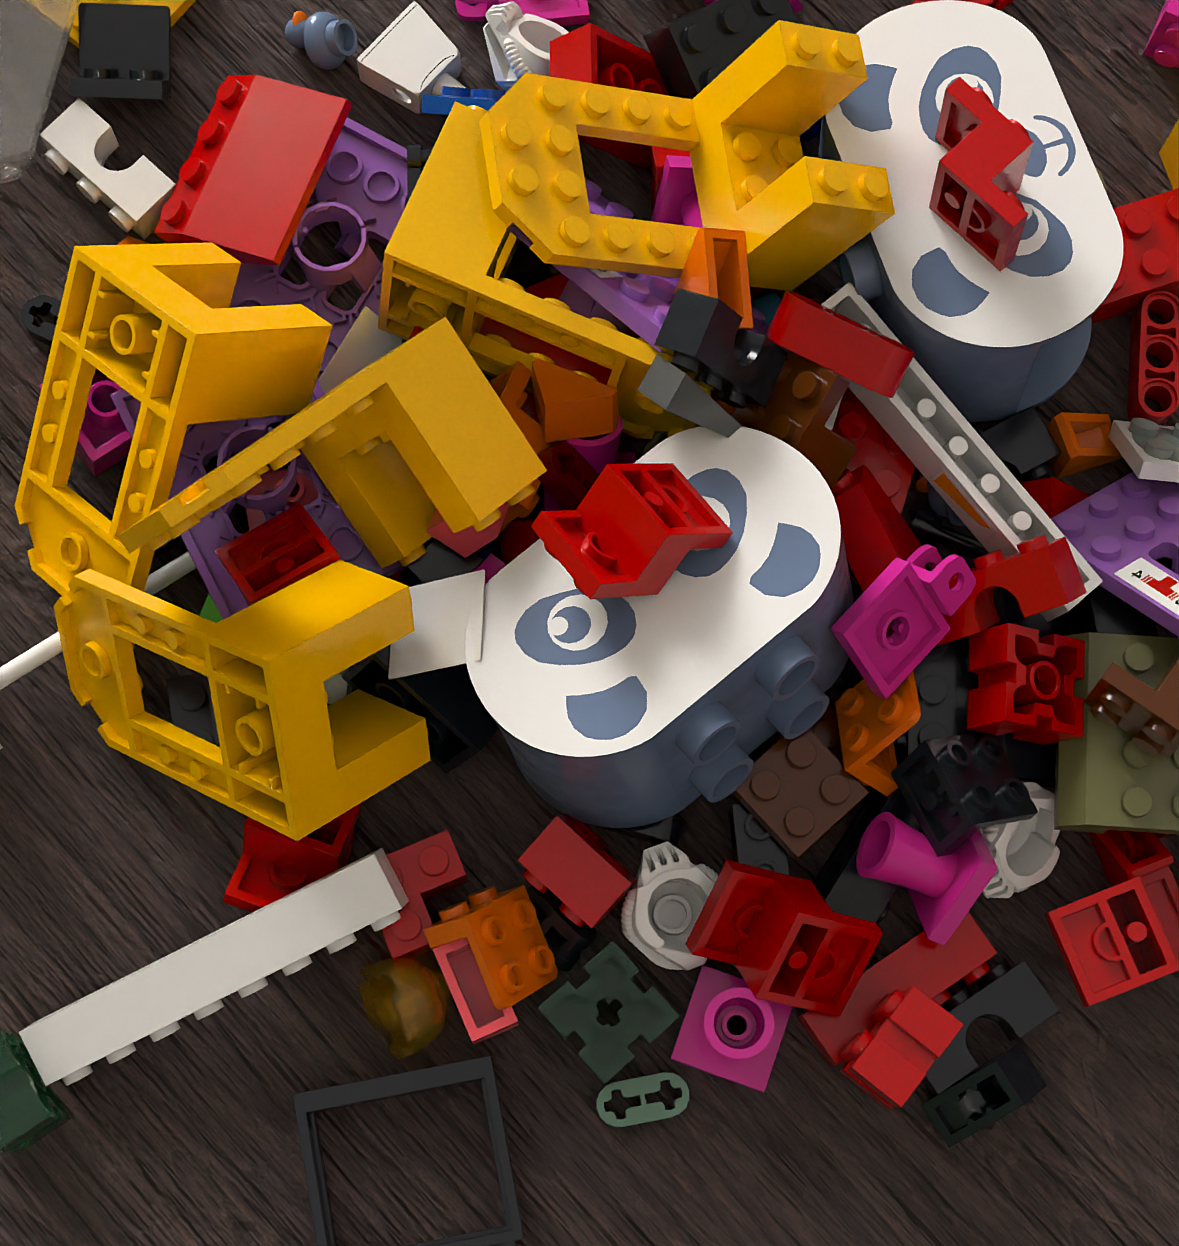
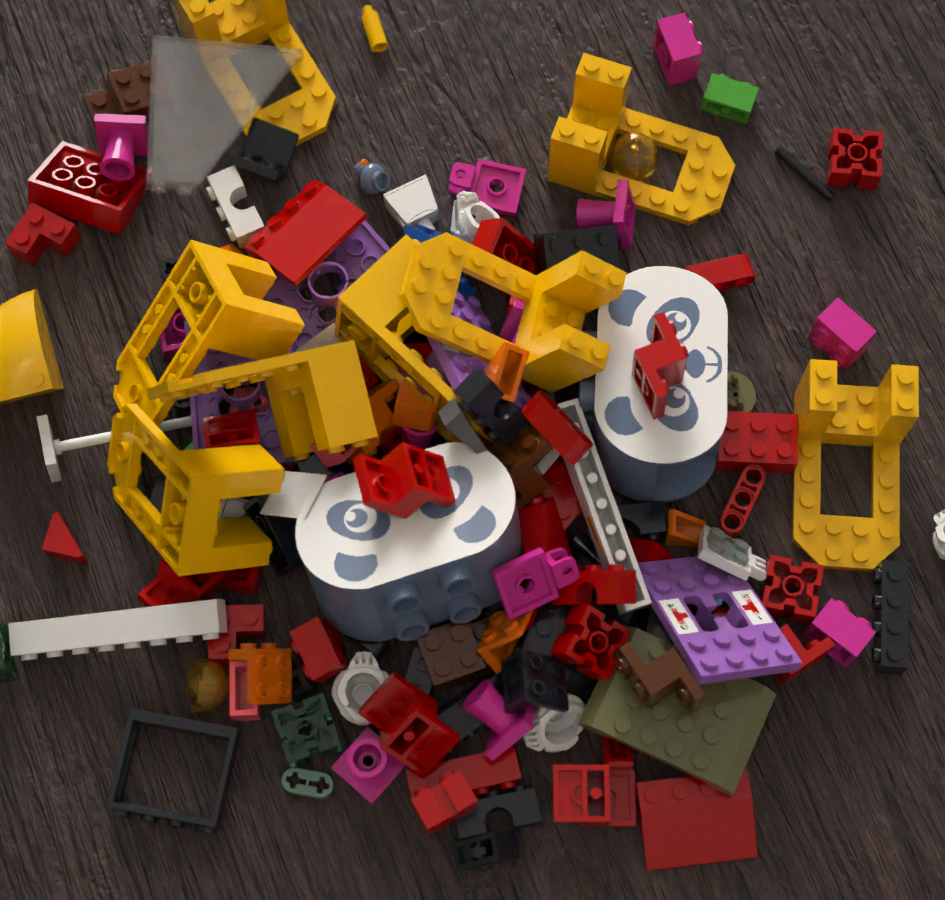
camera: 25 degrees right, 5 degrees down
(49, 856) = (61, 543): none -> red slope
(392, 805) = (243, 581): none -> red slope

